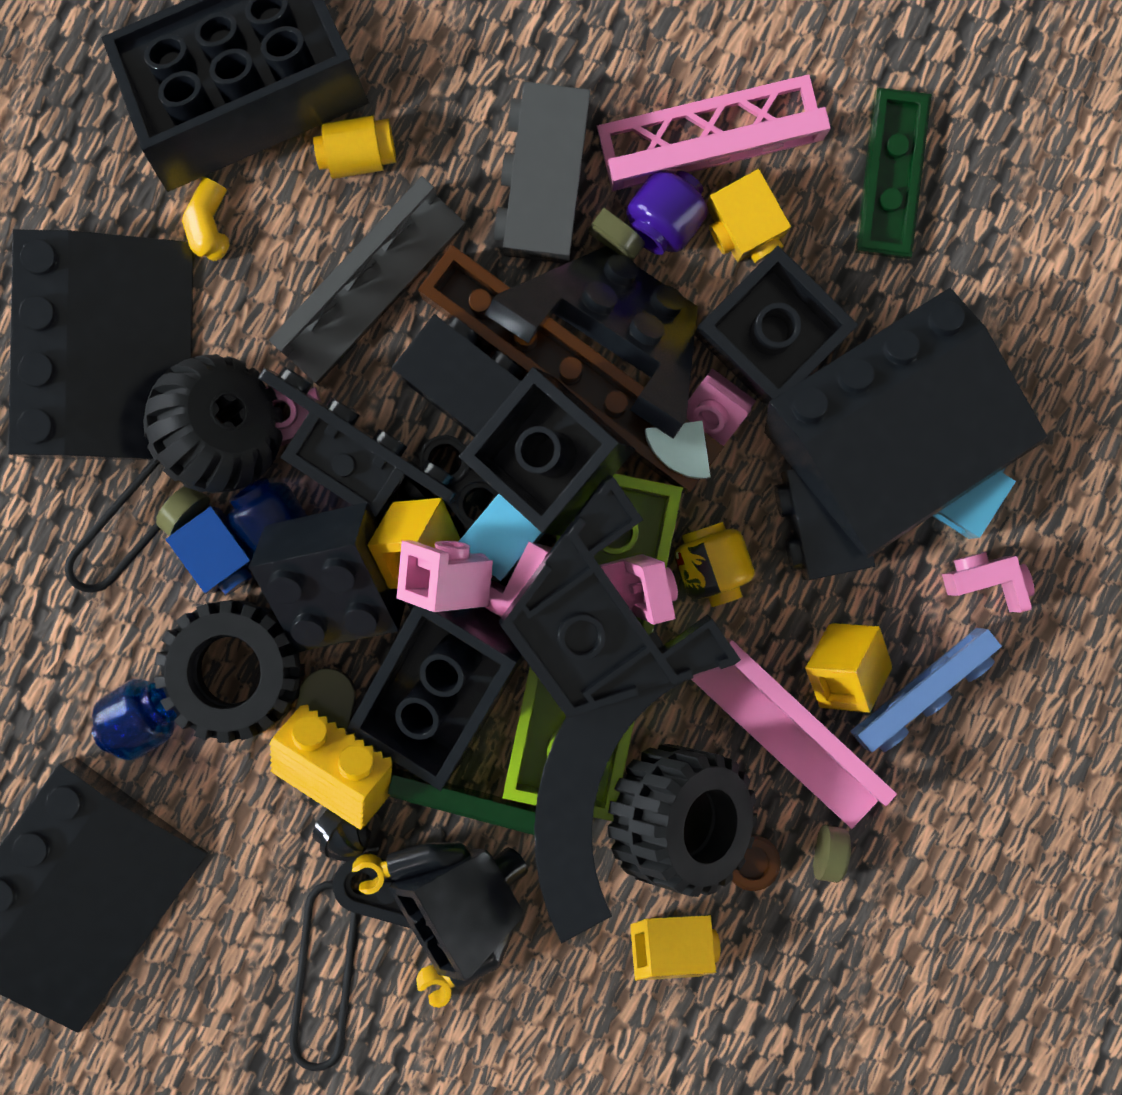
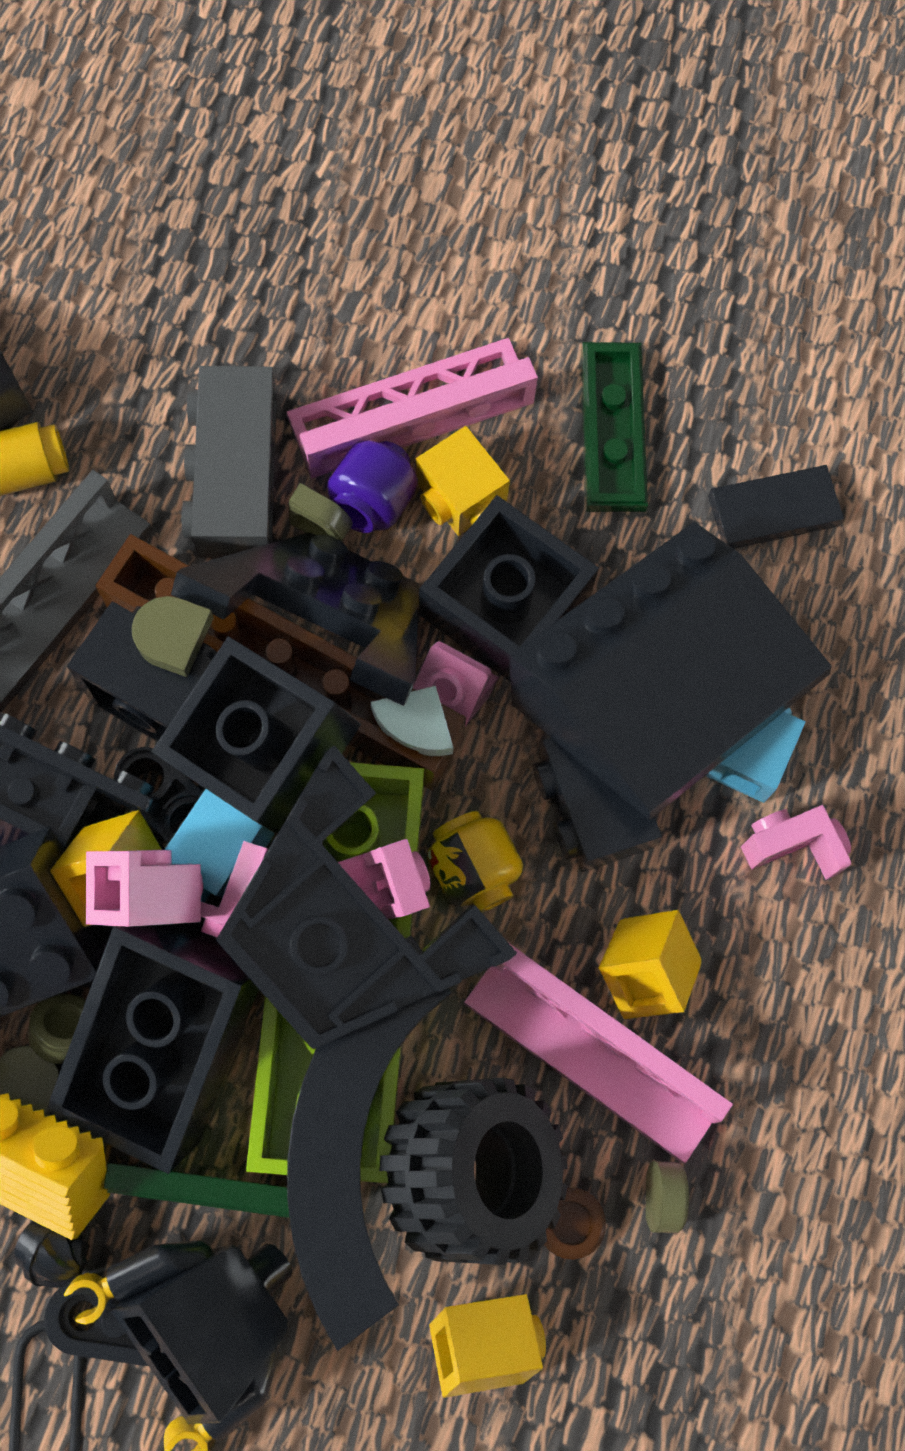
camera: 10 degrees left, 15 degrees down
(359, 660) = (54, 1025): none -> olive tile
(483, 352) = (171, 633): none -> olive tile
(927, 691) = (747, 982): medium blue plate -> none
(1027, 270) = (775, 507): none -> black tile

